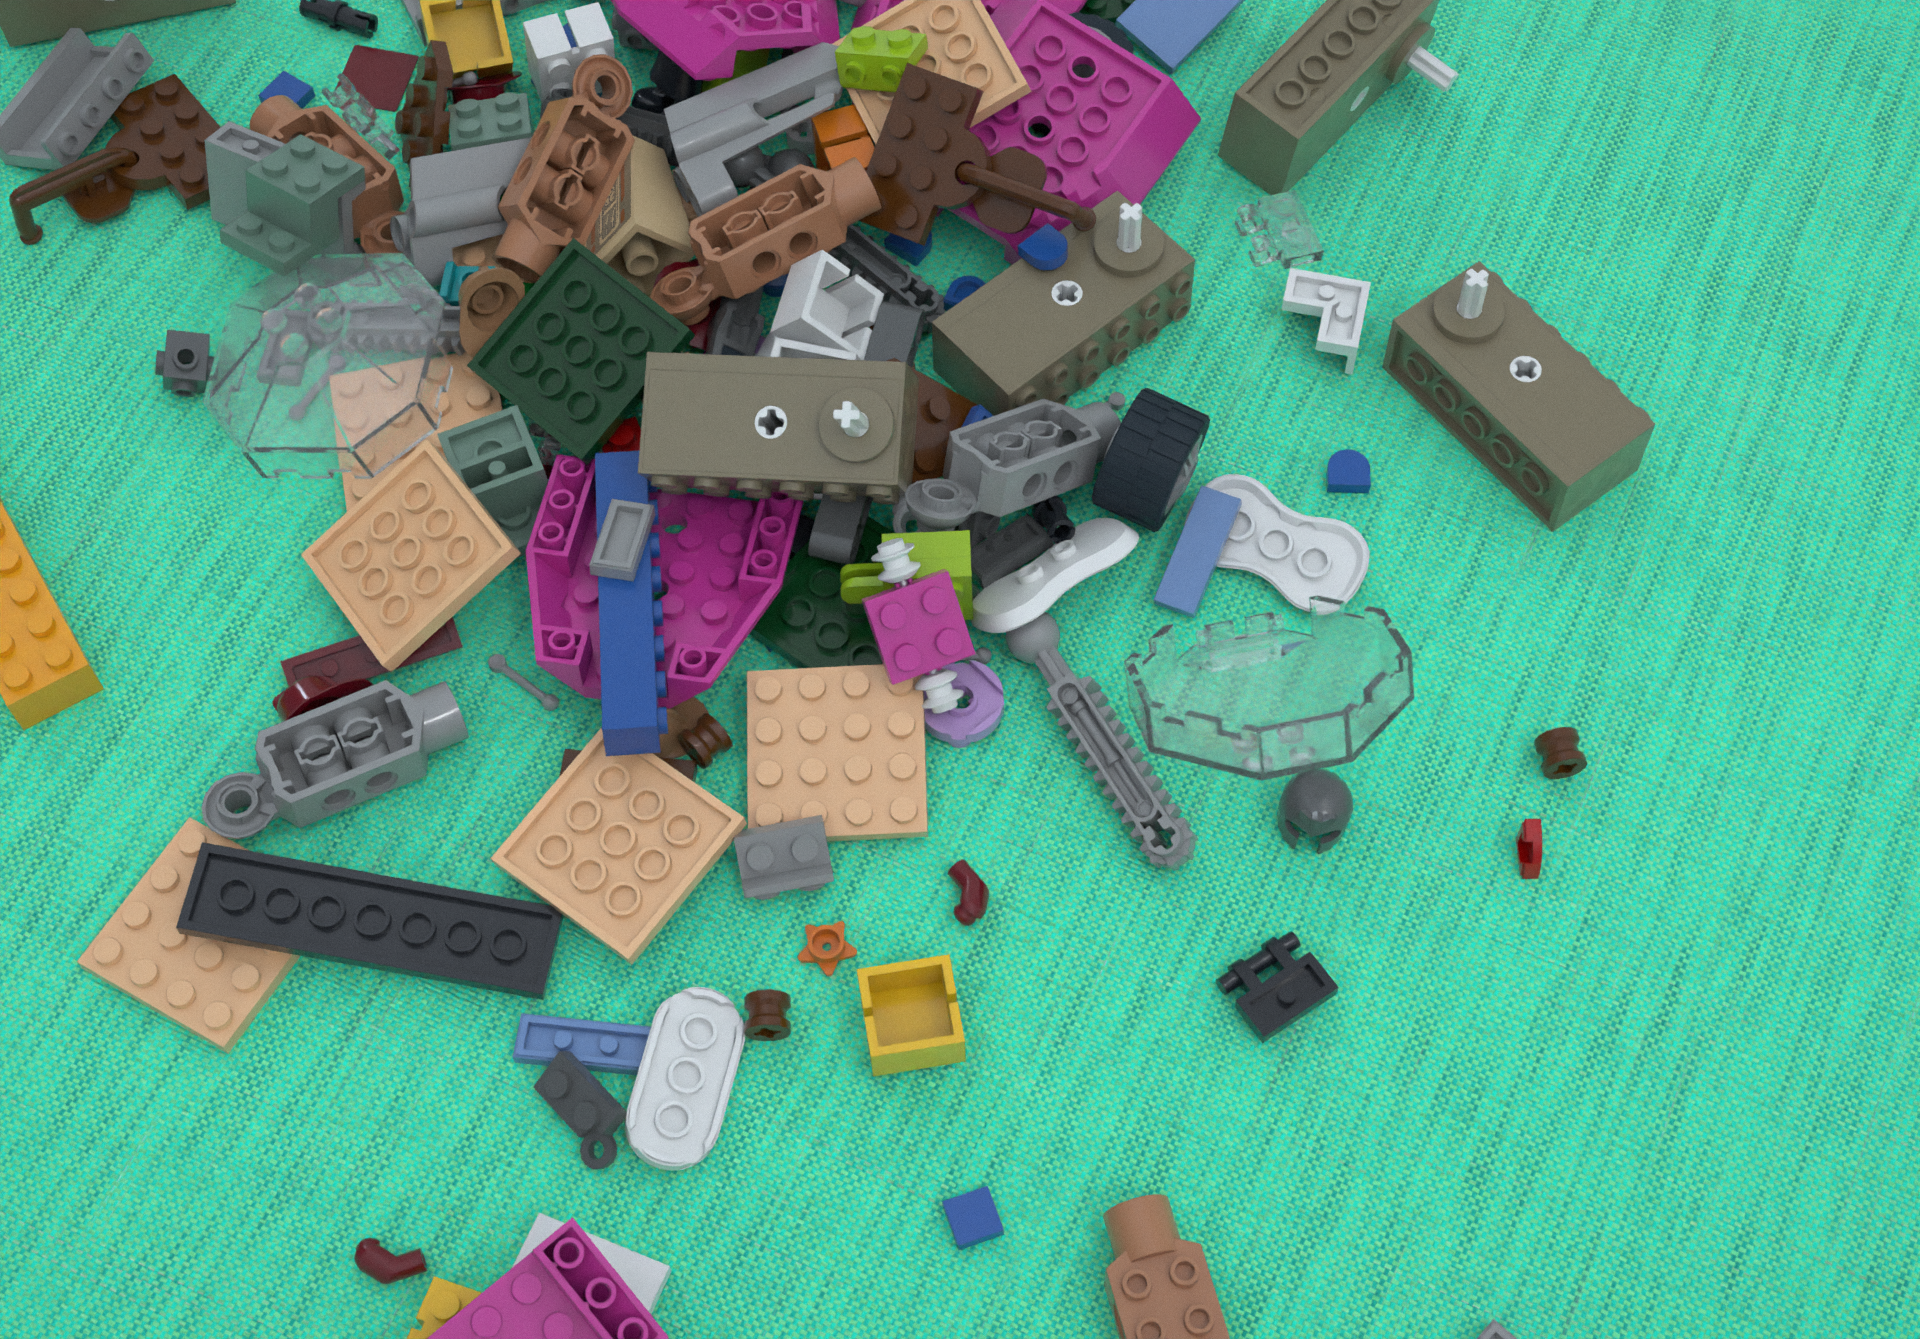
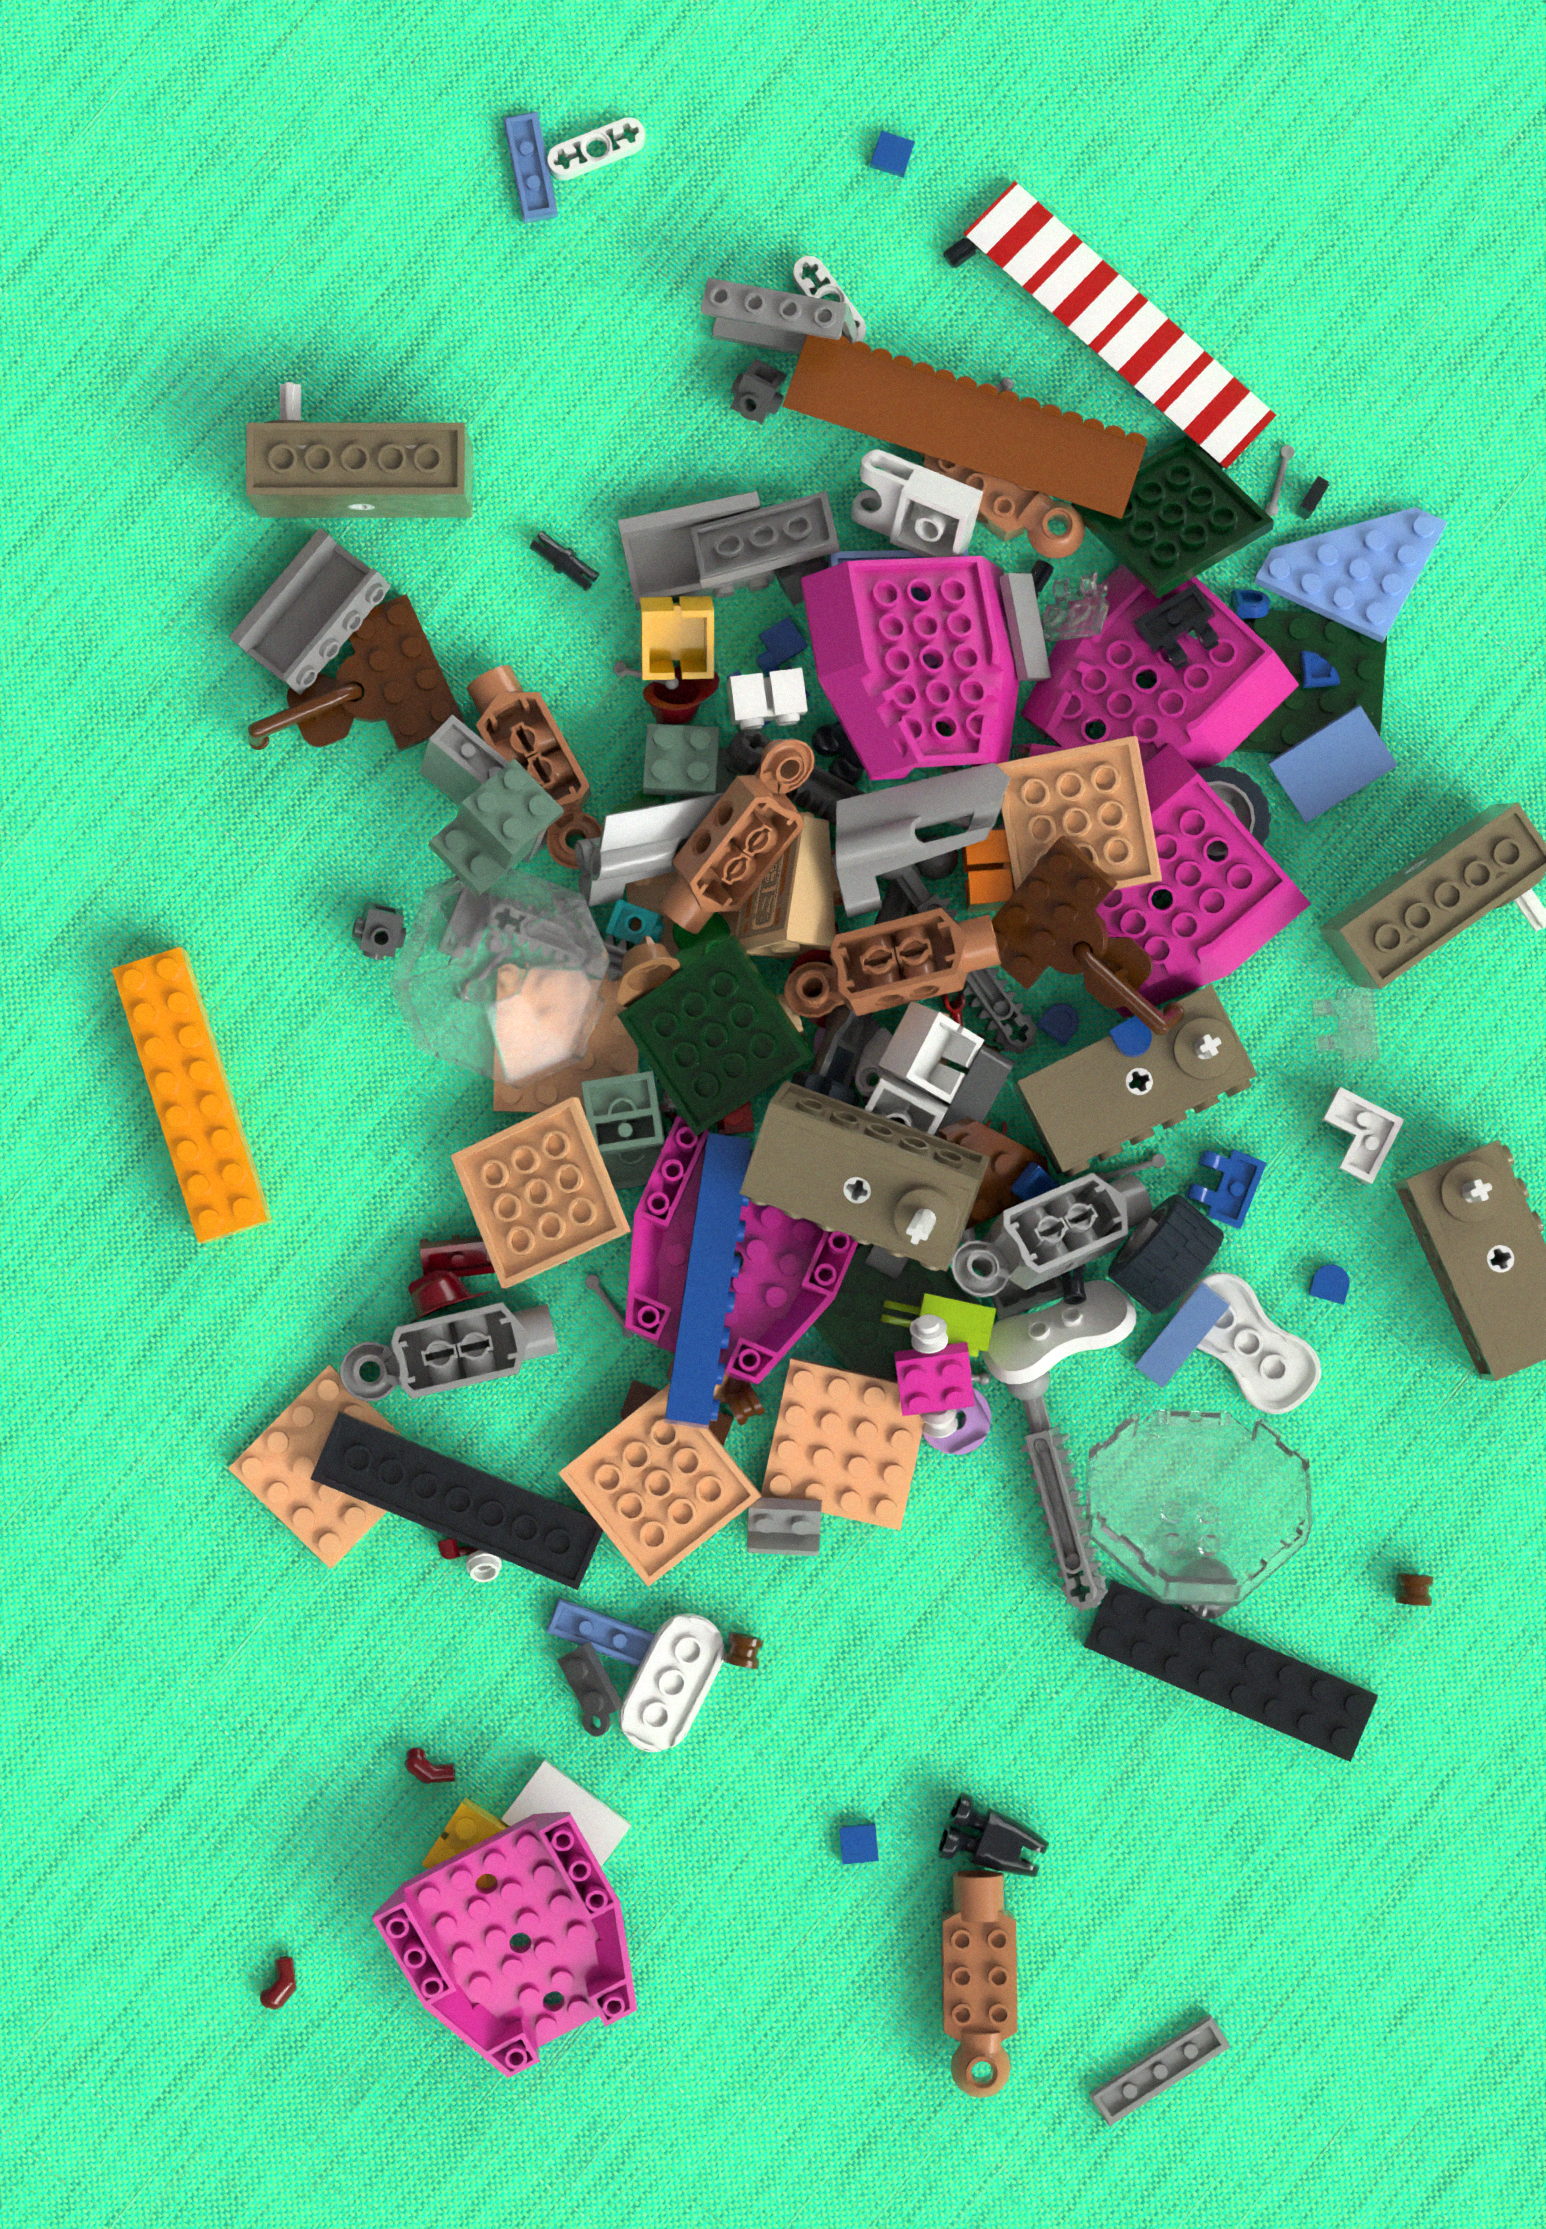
camera: 10 degrees right, 25 degrees up
(289, 86) = (504, 642): blue tile -> none
(362, 116) = (574, 710): clear plate -> none
(375, 993) = (450, 1549): none -> dark red hand
(380, 75) = (586, 637): dark red sticker -> none
(418, 1007) = (483, 1566): none -> white plate
(423, 118) = (623, 725): reddish brown plate -> none
(622, 540) = (714, 1235): light grey tile -> none
(824, 935) = (800, 1609): orange plate -> none
(877, 57) = (1038, 805): lime bracket -> none
(911, 1015) = (851, 1684): yellow piece -> none
(973, 895) = (924, 1588): dark red arm -> none
(1149, 1165) = (999, 1839): none -> black piece
(1210, 392) = (1235, 1187): none -> blue plate
(1283, 997) = (1138, 1733): black plate -> none
(1377, 900) = (1230, 1670): none -> black plate
(1529, 848) = (1362, 1662): red tile -> none

